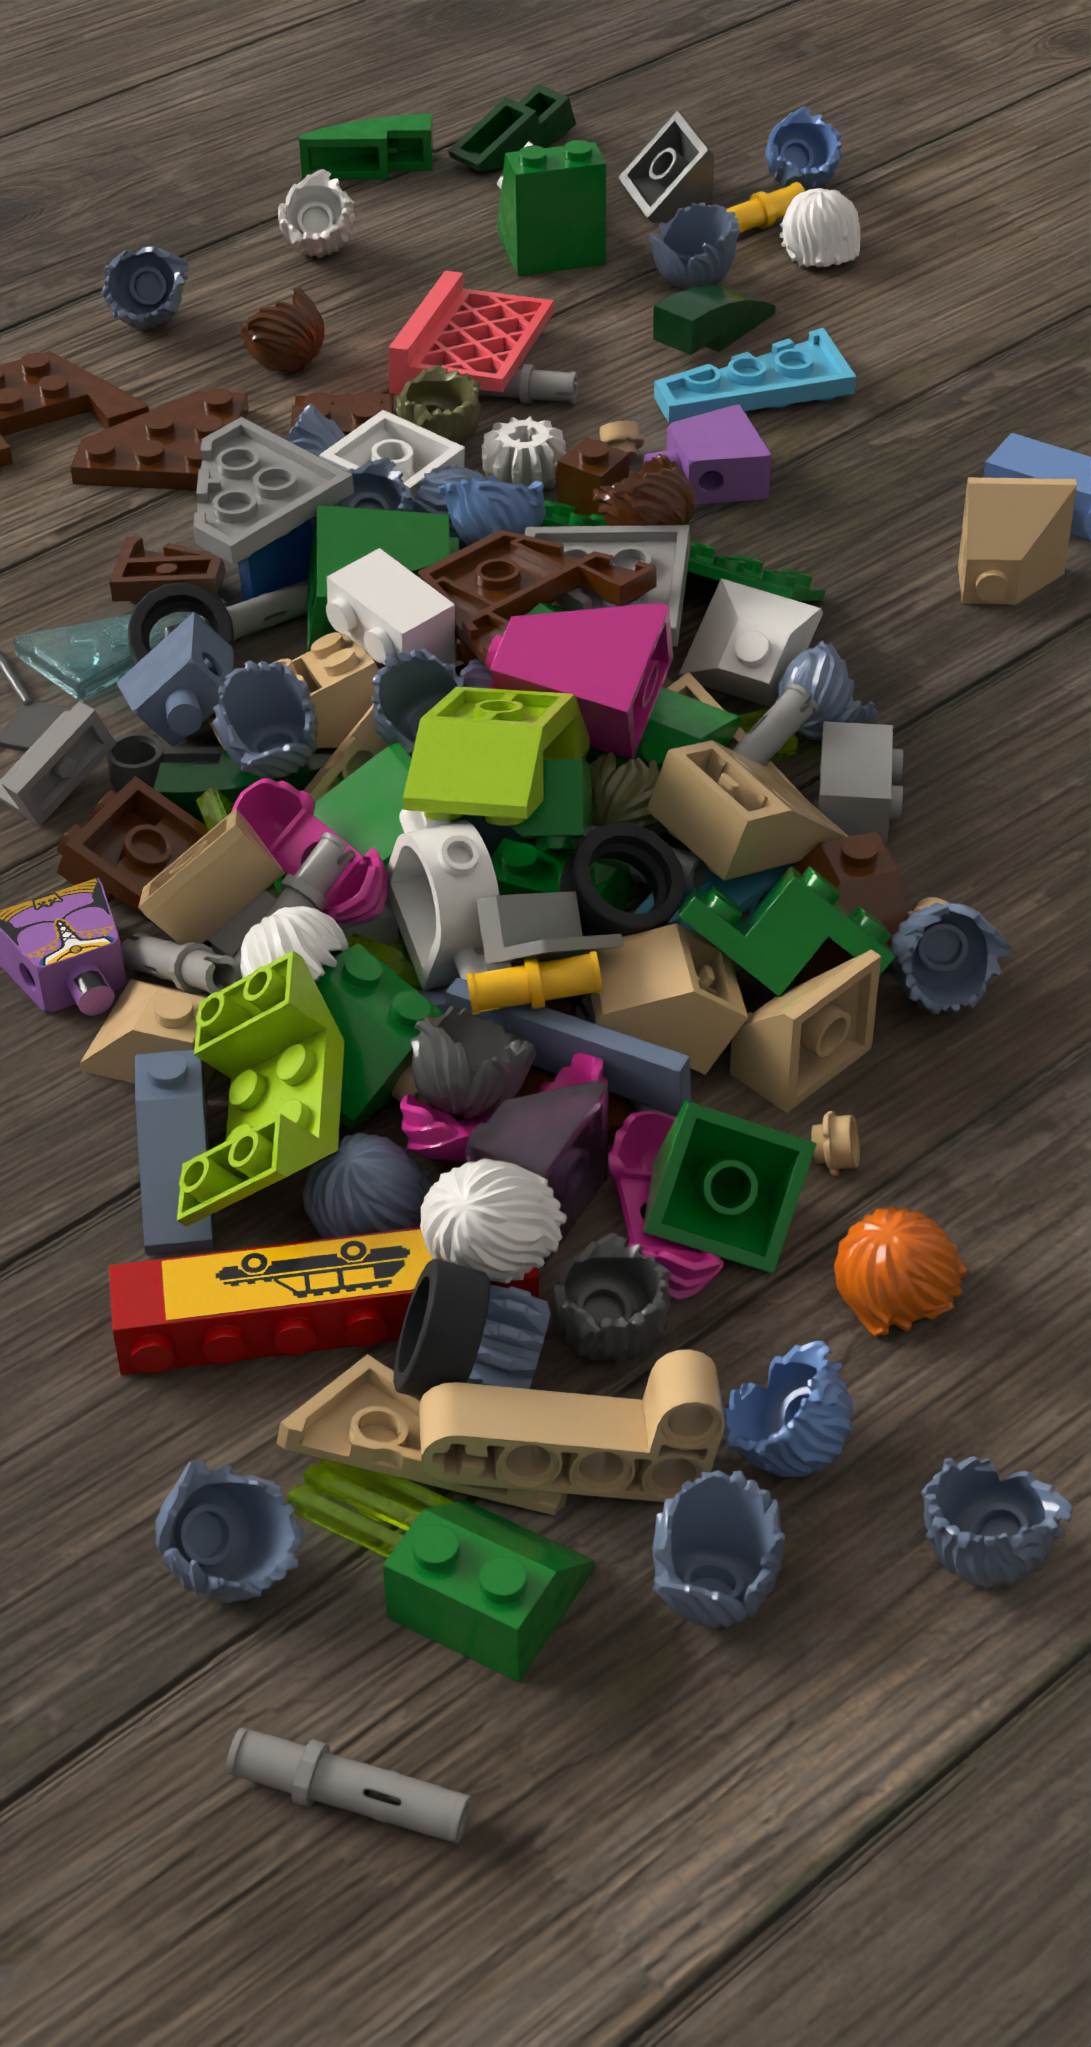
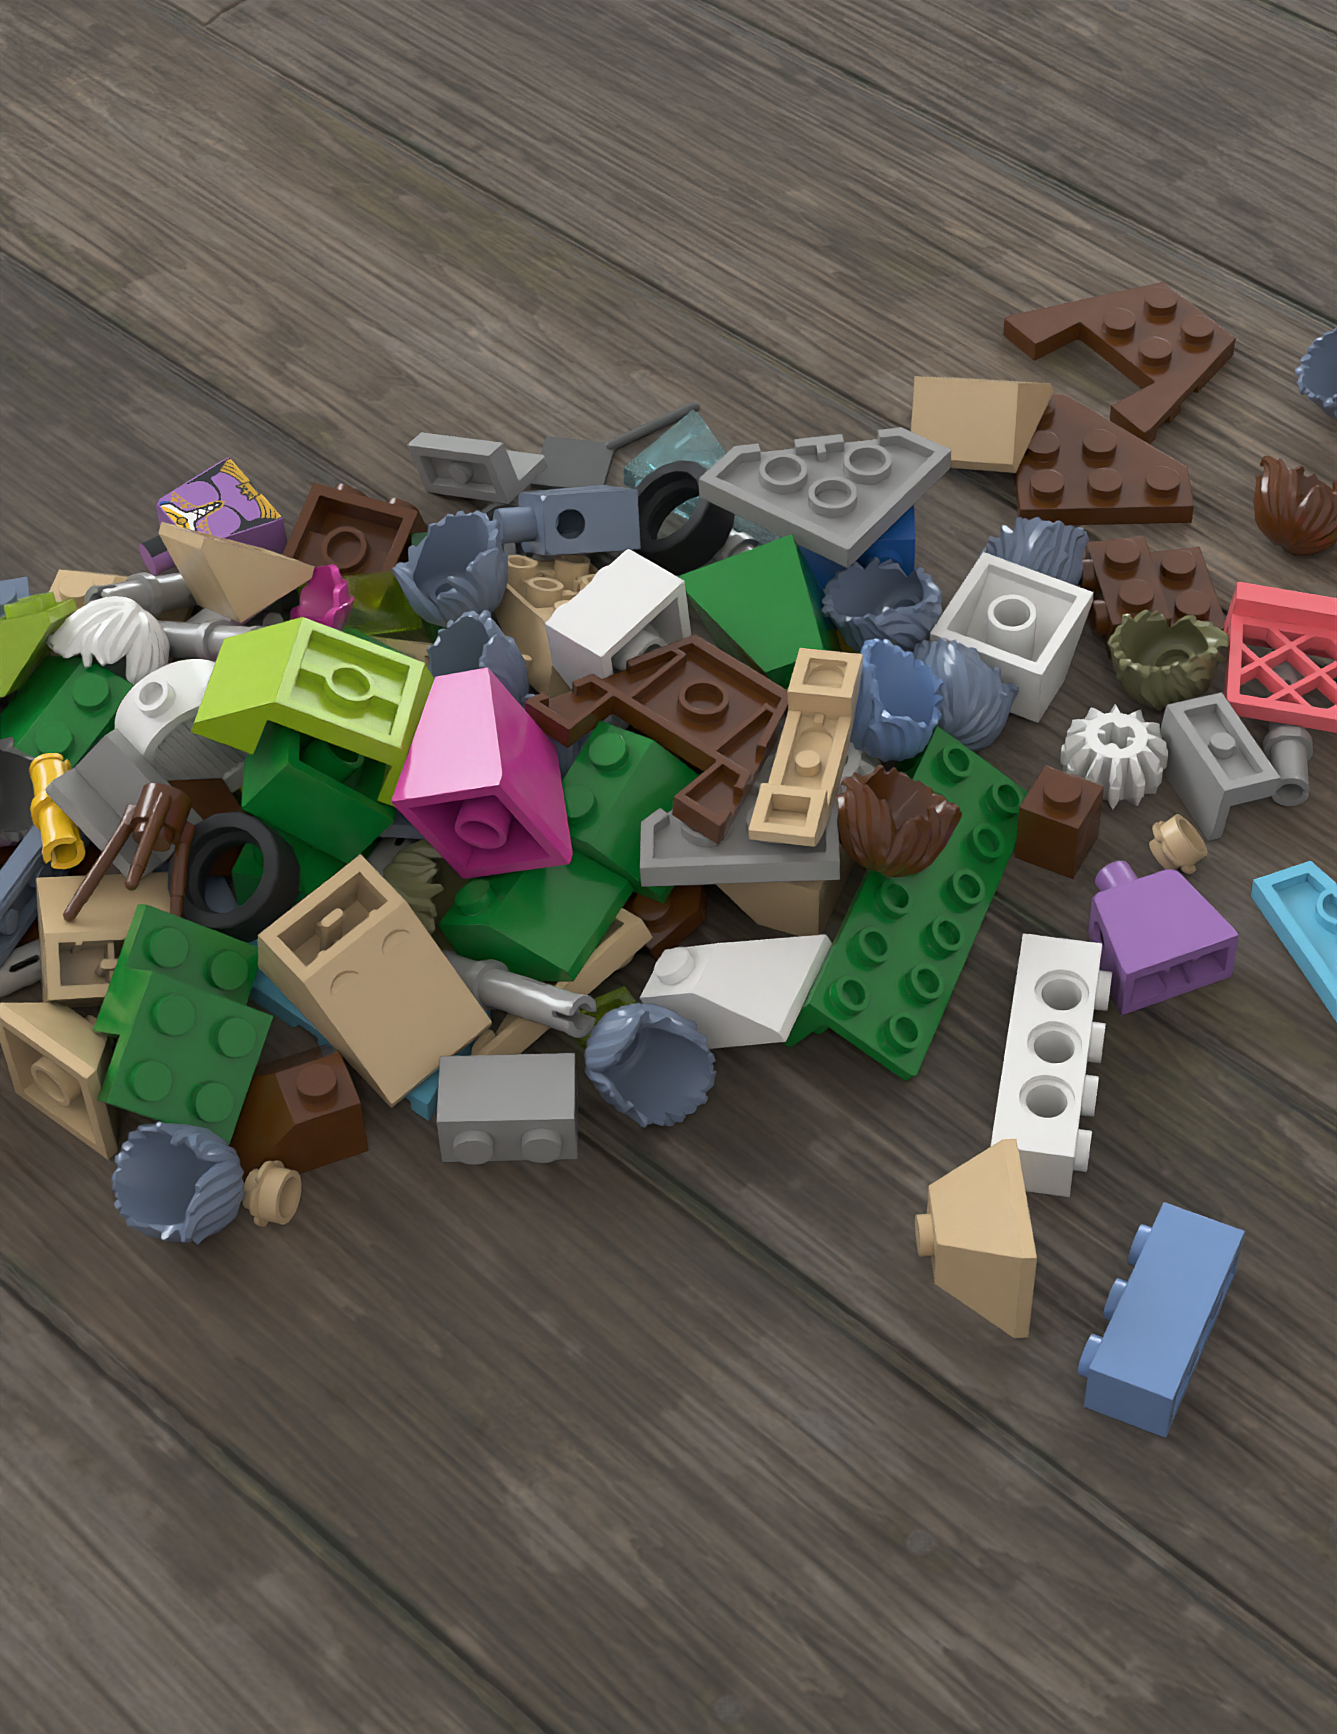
camera: 85 degrees right, 5 degrees up
(110, 474) = (979, 419): none -> tan slope
(516, 507) = (810, 750): none -> tan slope
(565, 397) = (1213, 761): none -> light grey panel
(591, 885) = (156, 825): none -> reddish brown plant
(832, 517) = (1048, 1058): none -> white brick

